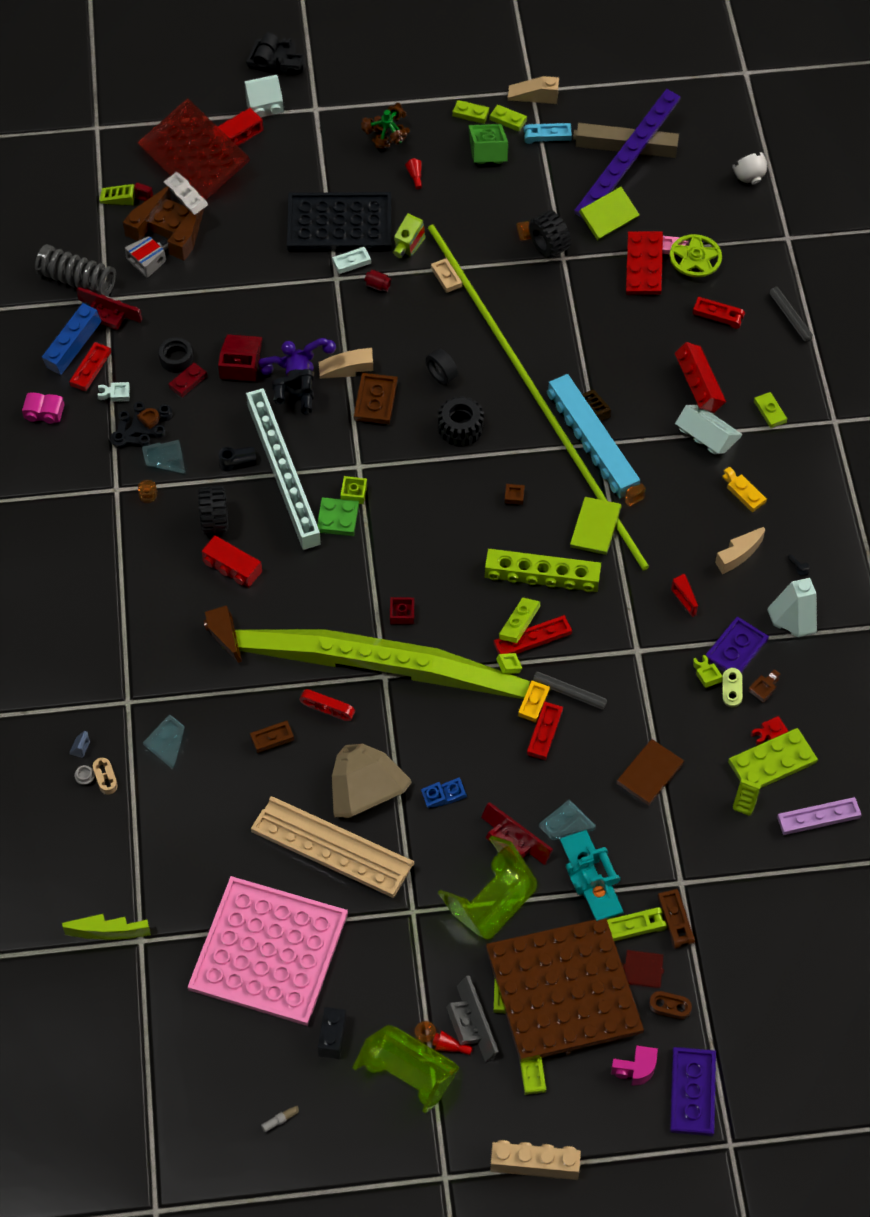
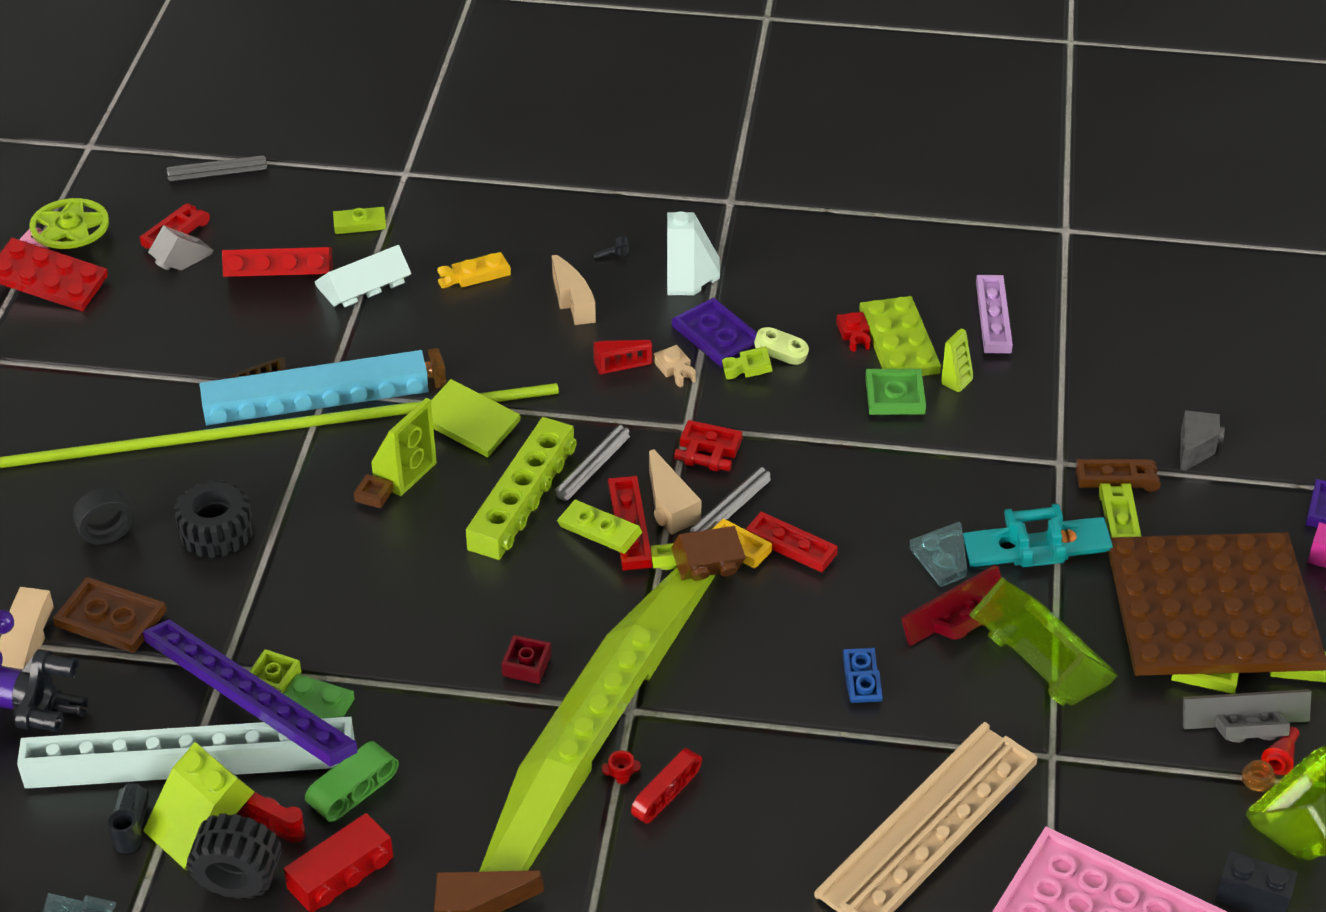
camera: 75 degrees left, 15 degrees down
(249, 482) = (193, 792): none -> lime slope
(257, 515) = (282, 821): none -> red plate
(272, 736) = (702, 871): reddish brown plate -> none
(289, 550) = (351, 781): none -> bright green beam
(323, 478) = (251, 693): none -> dark purple plate
(337, 674) = (621, 766): none -> red plate
(364, 779) = (827, 754): dark tan brick -> none
(506, 681) = (708, 553): none -> reddish brown brick
(542, 499) = (407, 449): none -> lime slope
(561, 652) = (673, 500): none -> tan slope
(581, 604) = (592, 463): none -> axle
(624, 665) = (709, 439): none -> red plate
(644, 968) = (1183, 520): clear red piece -> none
(650, 772) = (886, 453): reddish brown tile -> none
(670, 1005) = (1246, 506): reddish brown plate -> none
(694, 627) = (674, 362): none -> tan plate
(696, 322) = (178, 249): none -> light grey slope
(711, 766) = (895, 391): none -> bright green plate
(728, 966) = (1199, 437): none -> flat silver slope
(764, 687) = (789, 318): reddish brown plate -> none

